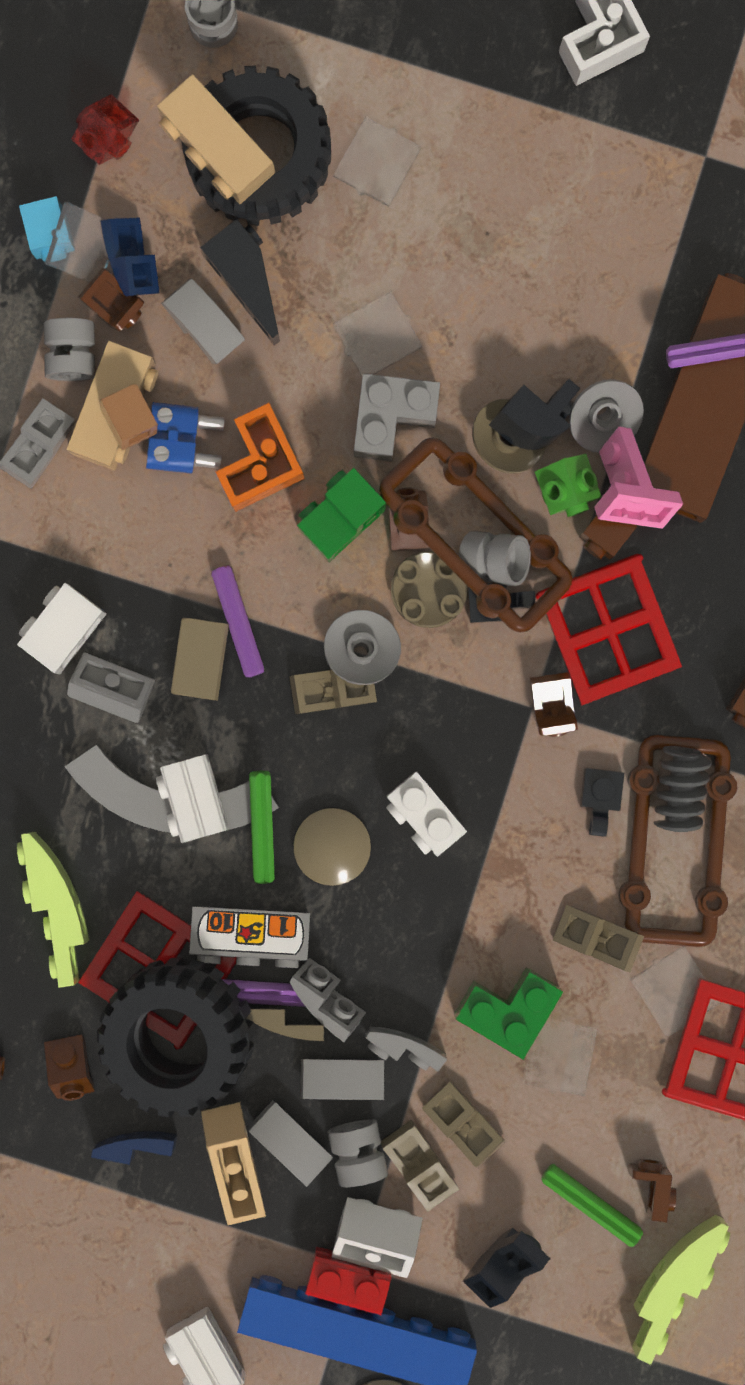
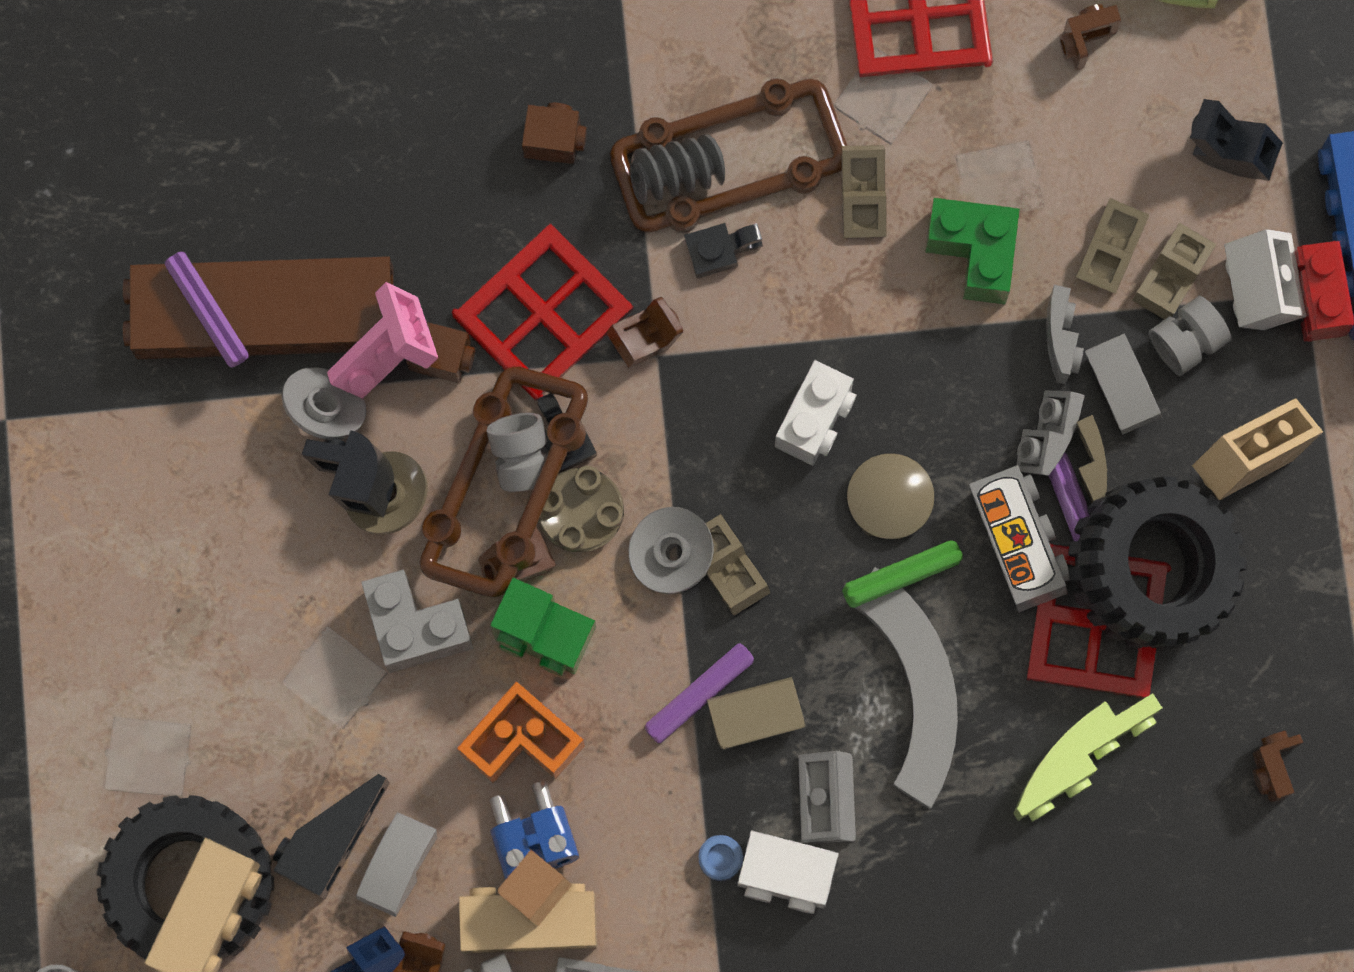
camera: 110 degrees left, 10 degrees down
(68, 1068) = (1241, 667): reddish brown bracket -> none
(99, 582) = (720, 858): none -> medium blue tile
(123, 1146) = (1294, 575): dark blue slope -> none
(192, 799) = (904, 654): white brick -> none
(289, 1143) = (1212, 407): light grey slope -> none
(568, 485) = (413, 410): bright green brick -> none
(592, 1205) = (1134, 87): bright green axle -> none

